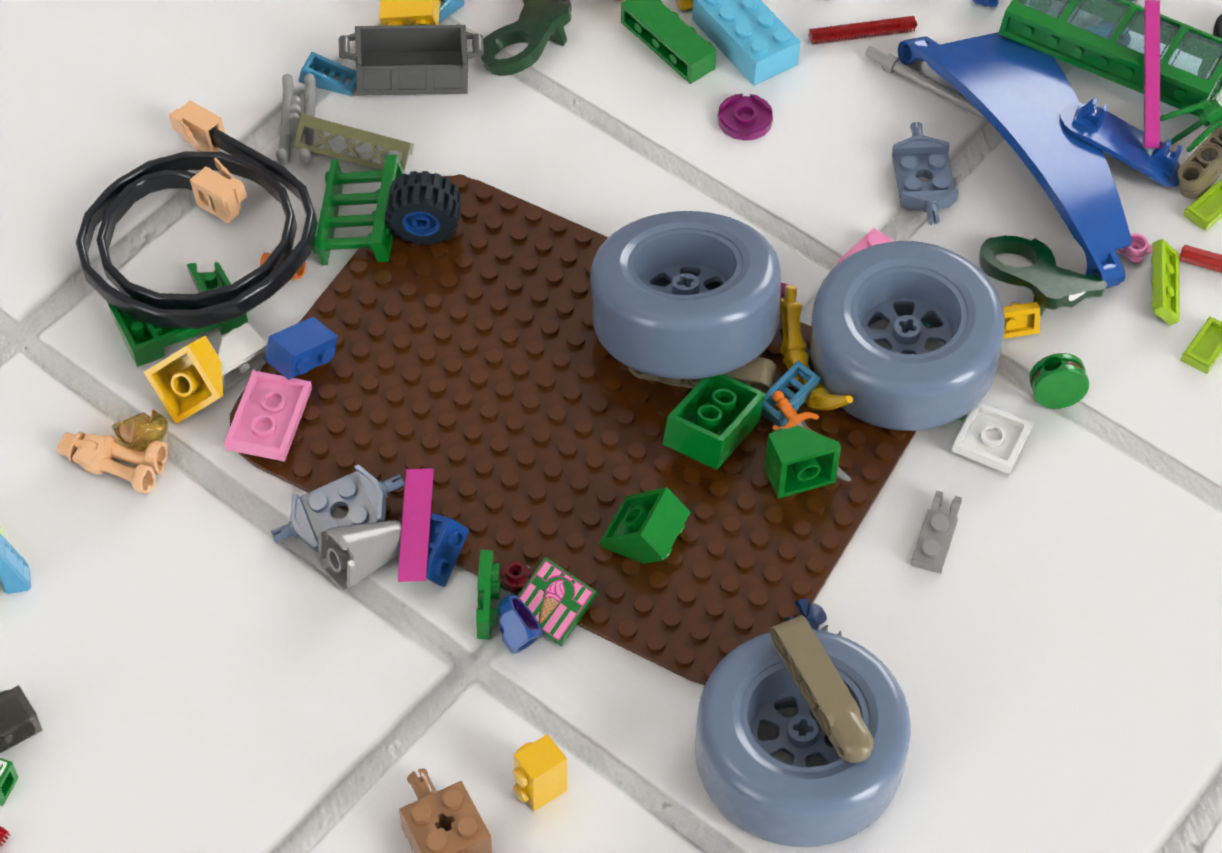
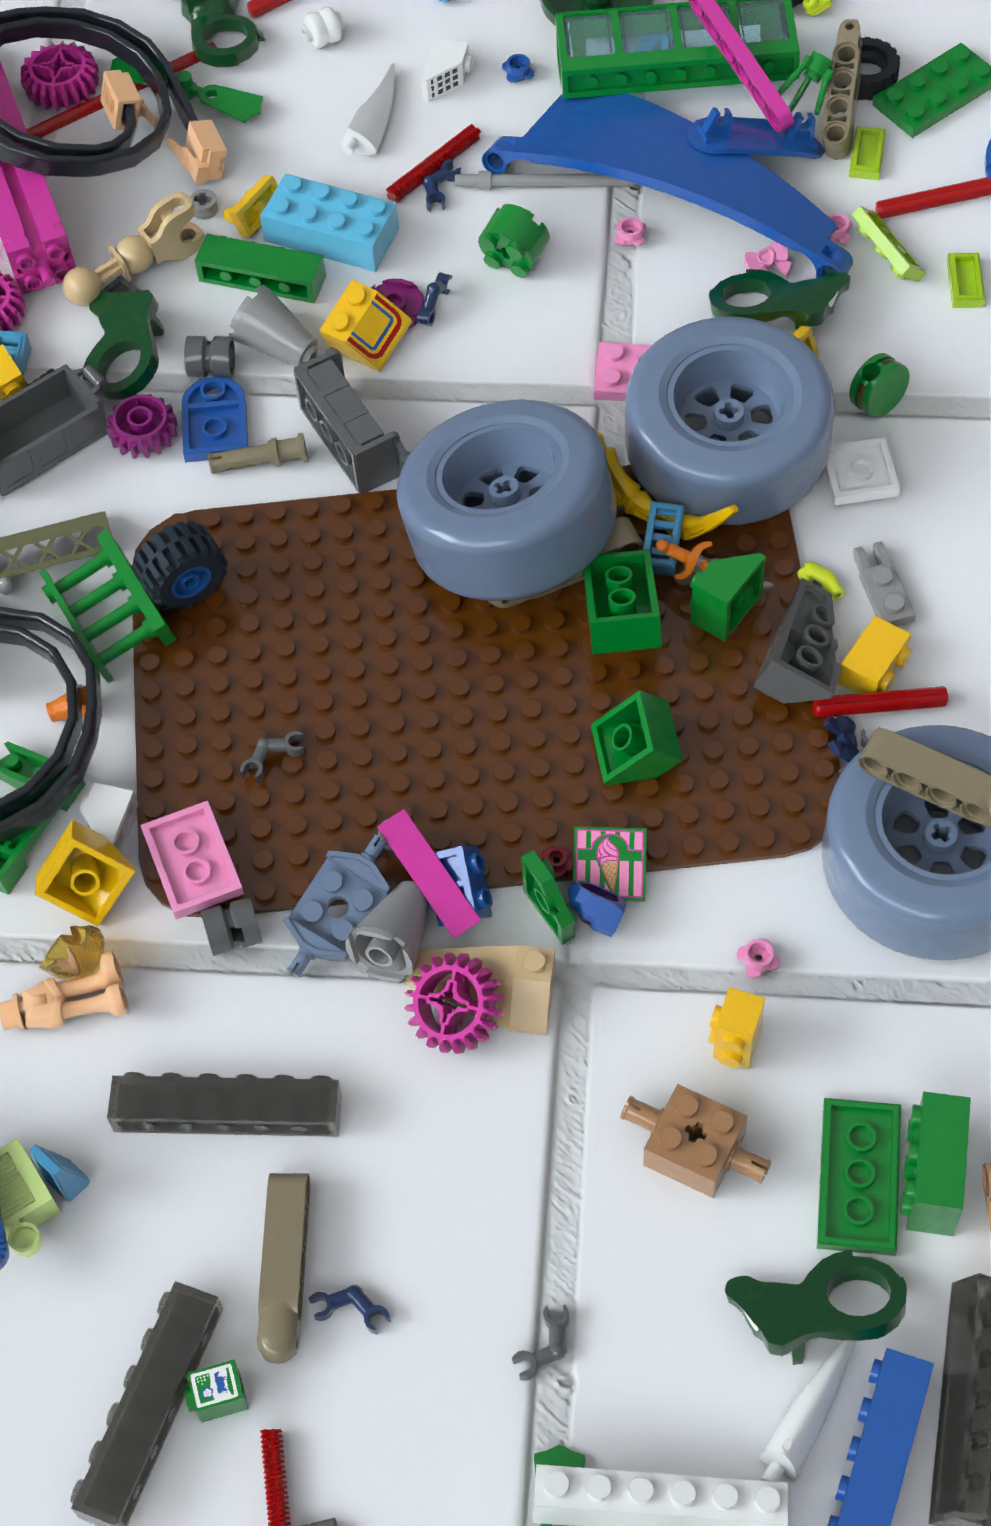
camera: 30 degrees left, 5 degrees up
(101, 725) = (283, 1266): none -> dark tan piece
(129, 777) = (350, 1295): none -> dark blue arm
(154, 595) = (225, 1105): none -> clear smoke brick
(262, 479) = (231, 926): none -> dark grey wheel
(300, 348) = (173, 774): blue brick -> none
(358, 624) = (449, 1015): none -> dark pink gear
(380, 371) = (266, 745): none -> dark grey arm
(403, 631) = (525, 982): none -> tan wedge
(490, 99) = (141, 425): none -> magenta gear
(543, 128) = (213, 422): none -> blue tile
(566, 170) = (274, 452): none -> dark tan pin
(577, 79) = (209, 356): none -> dark grey wheel
(609, 729) = (759, 947): none -> bright pink plate
(633, 170) = (346, 424): none -> dark grey container
(636, 81) = (272, 328): none -> light grey cone
(705, 118) = (365, 326): none -> yellow slope
(762, 135) = (427, 312): none -> dark blue arm
(825, 538) = (803, 651): none -> dark grey wedge
(854, 42) = (431, 181): none -> dark blue arm
(857, 613) = (881, 701): none -> red axle
(867, 116) = (513, 240): none -> green brick
(880, 579) = (875, 657): none -> yellow brick
(890, 489) = (823, 575): none -> neon yellow arm
(924, 158) = (592, 250): sand blue plate -> none
(969, 161) = (630, 232): none -> bright pink plate
(1058, 239) = (765, 258): none -> bright pink piece

